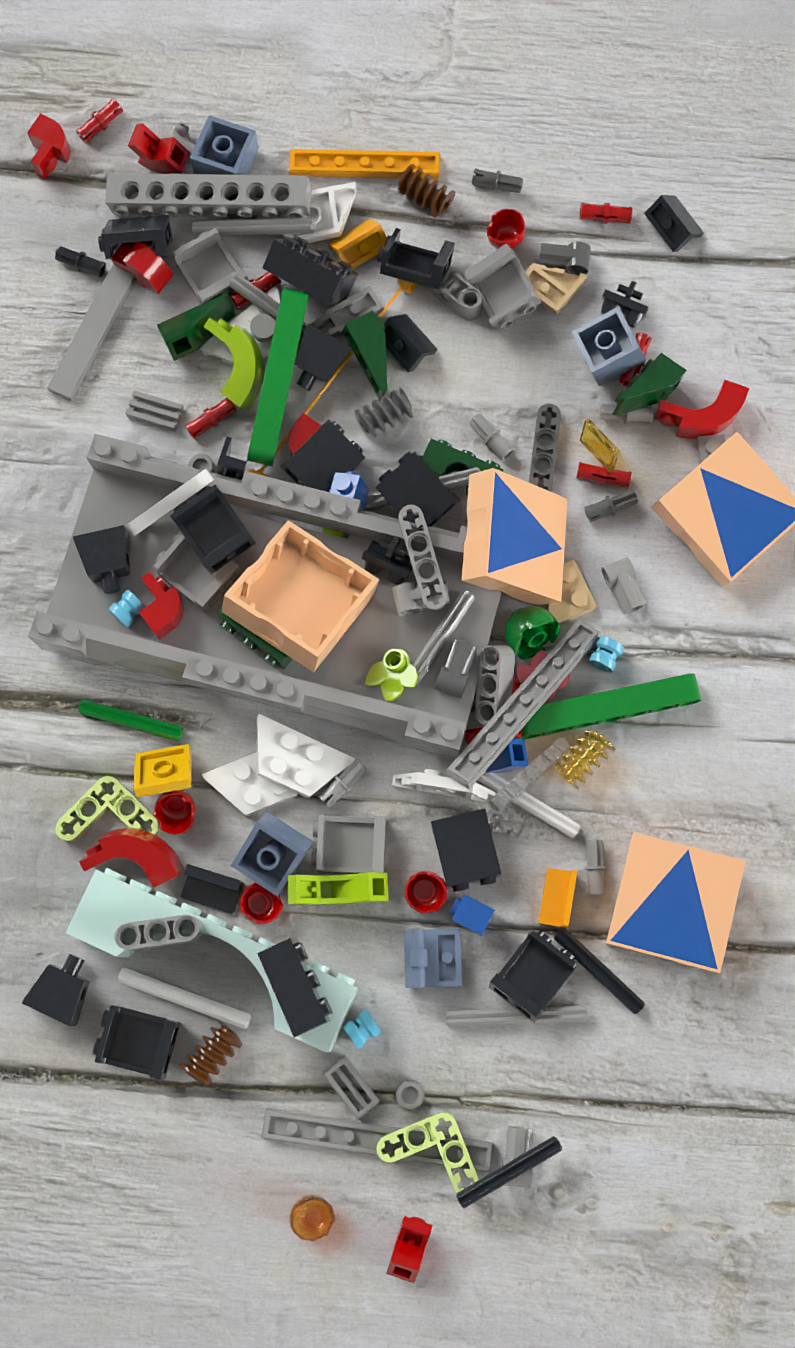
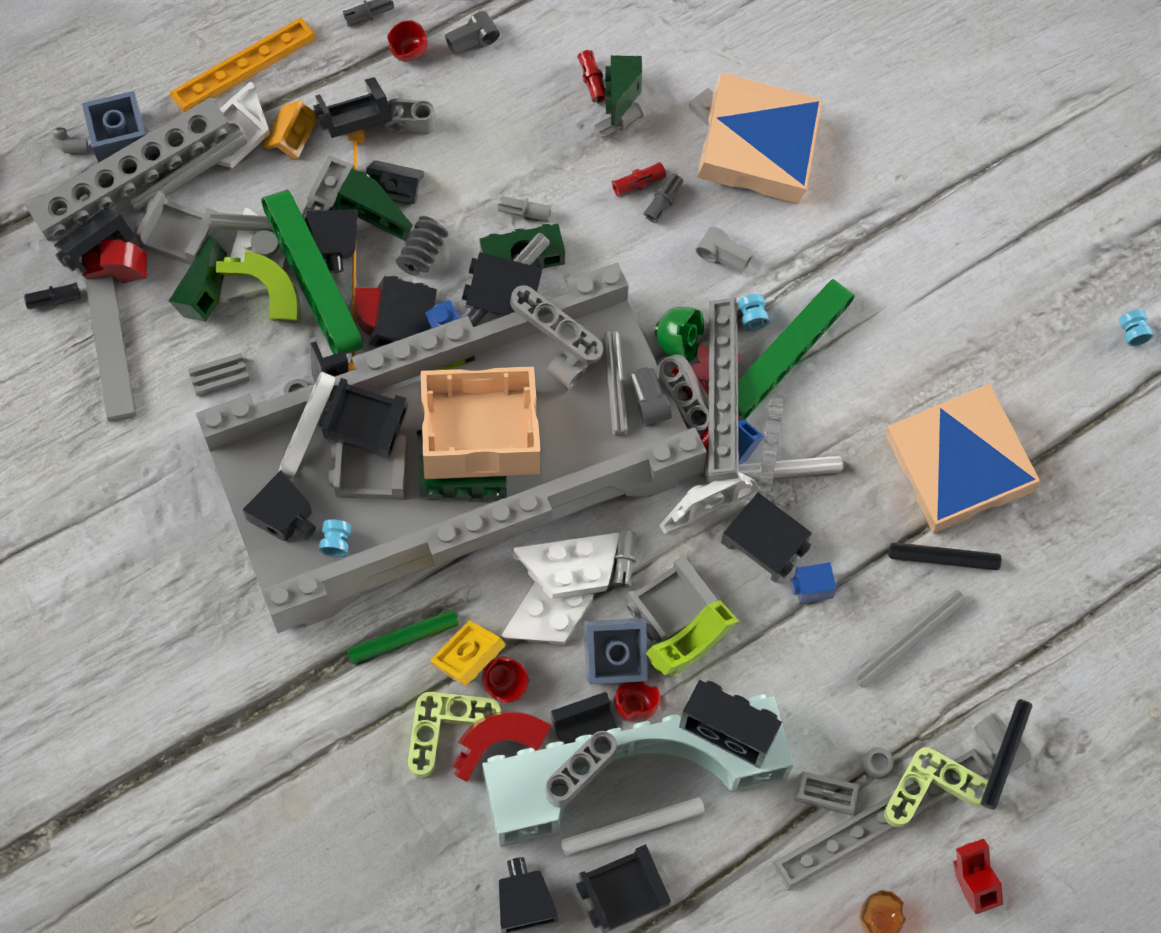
camera: 45 degrees left, 10 degrees down
(158, 154) = (57, 164): red brick -> none
(166, 611) = (369, 515): red brick -> none
(210, 417) = (274, 347): red pin -> none
(212, 1053) = (693, 850): reddish brown piece -> none
(263, 283) = (235, 206): red pin -> none
(310, 270) = (270, 171): black brick -> none
(362, 1029) = (800, 737): medium azure wheel -> none
(389, 558) = (527, 345): black hips -> none
(391, 677) = (604, 440): lime plate -> none
(423, 192) = (315, 53): reddish brown piece -> none
(426, 892) = (763, 592): red hair -> none
(432, 958) = (809, 641): sand blue plate -> none
(503, 287) = (443, 85): light grey panel -> none
(514, 538) = (614, 265): light nougat tile -> none
(533, 975) = (899, 593): black panel -> none
(545, 453) = (581, 192): dark grey beam -> none
(554, 286) = (478, 63): tan wing -> none
(557, 897) = (869, 523): light orange panel -> none
(575, 595) = (684, 285): tan wing -> none
(583, 757) = (801, 401): clear yellow piece -> none
(595, 867) = (878, 480): light grey axle -> none
(599, 445) = (619, 156): clear yellow slope -> none
(608, 346) = (566, 76): sand blue brick -> none
(635, 309) = (539, 42): black hips -> none
(708, 420) = (677, 94): red arch -> none

